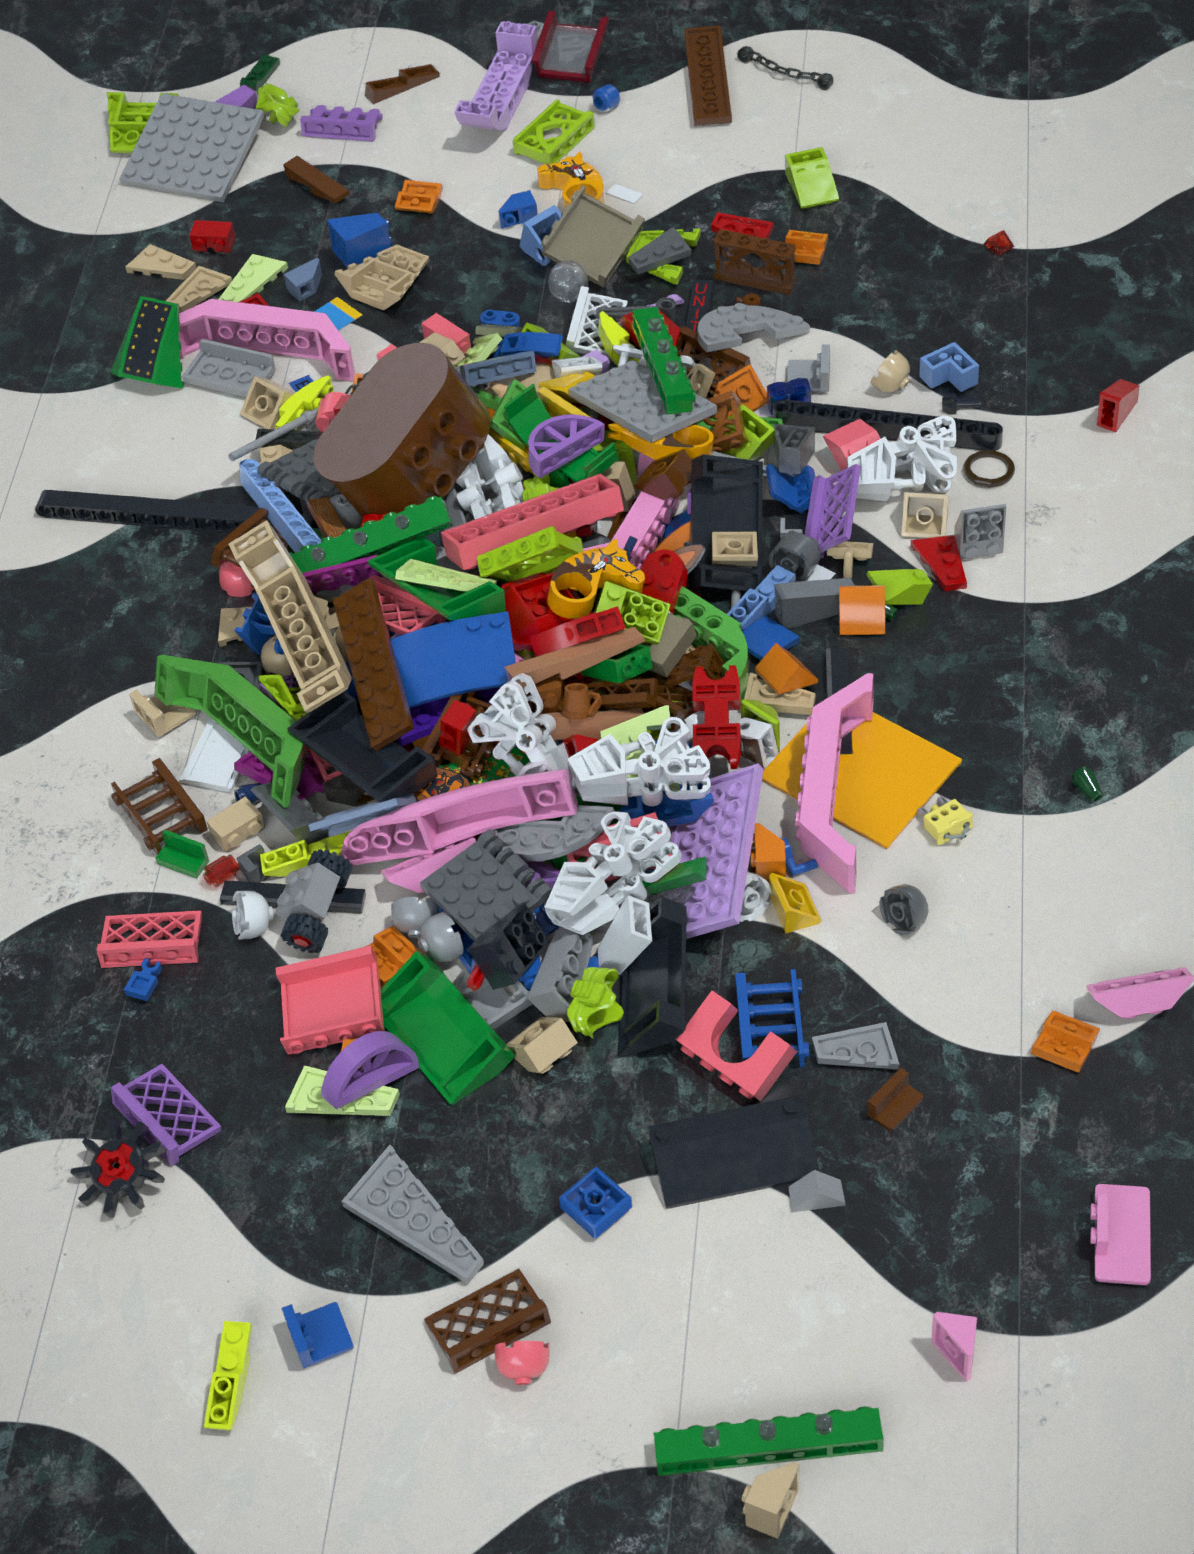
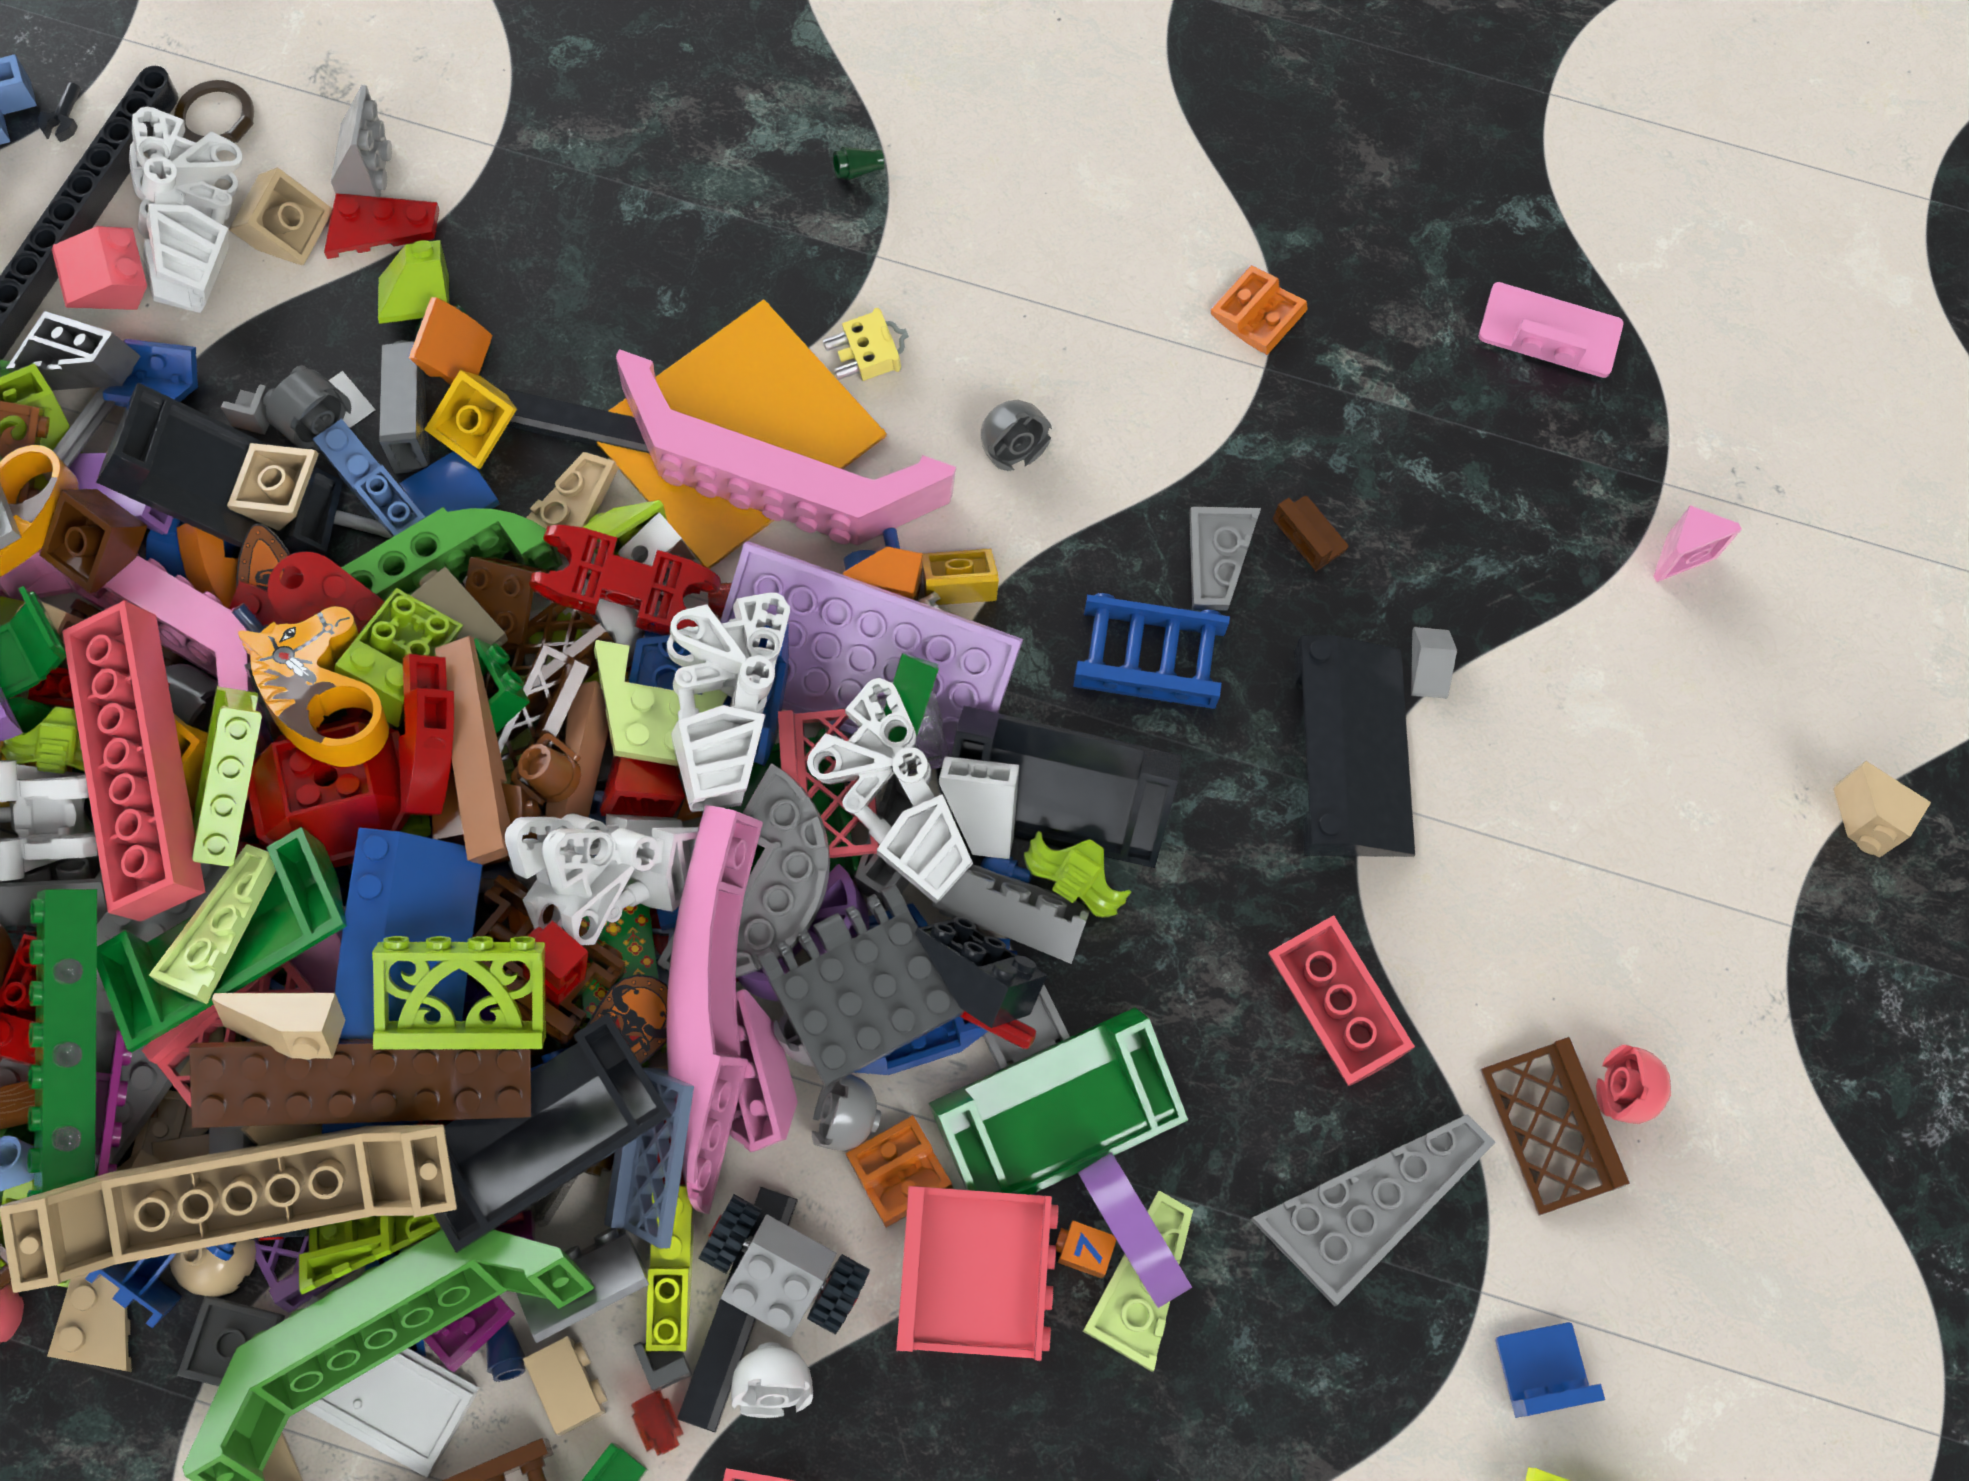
camera: 90 degrees left, 20 degrees up
(392, 616) = (291, 1023): none -> tan slope
(399, 662) = (416, 1032): none -> lime fence
(439, 939) = (908, 1079): light grey cylinder -> none
(541, 1166) = (1341, 1001): none -> coral brick
(542, 1044) = (1120, 968): tan slope -> none
(595, 1188) = (1409, 920): blue brick -> none
(752, 1075) = (1244, 695): coral arch -> none
(768, 1441) = (1784, 804): green piece -> none
(784, 671) = (530, 481): orange slope -> none
(819, 631) = (471, 417): none -> yellow slope
(822, 508) = (225, 351): medium lavender fence -> none
(847, 551) = (313, 333): tan plate -> none
(1142, 992) = (1212, 196): bright pink wedge -> none

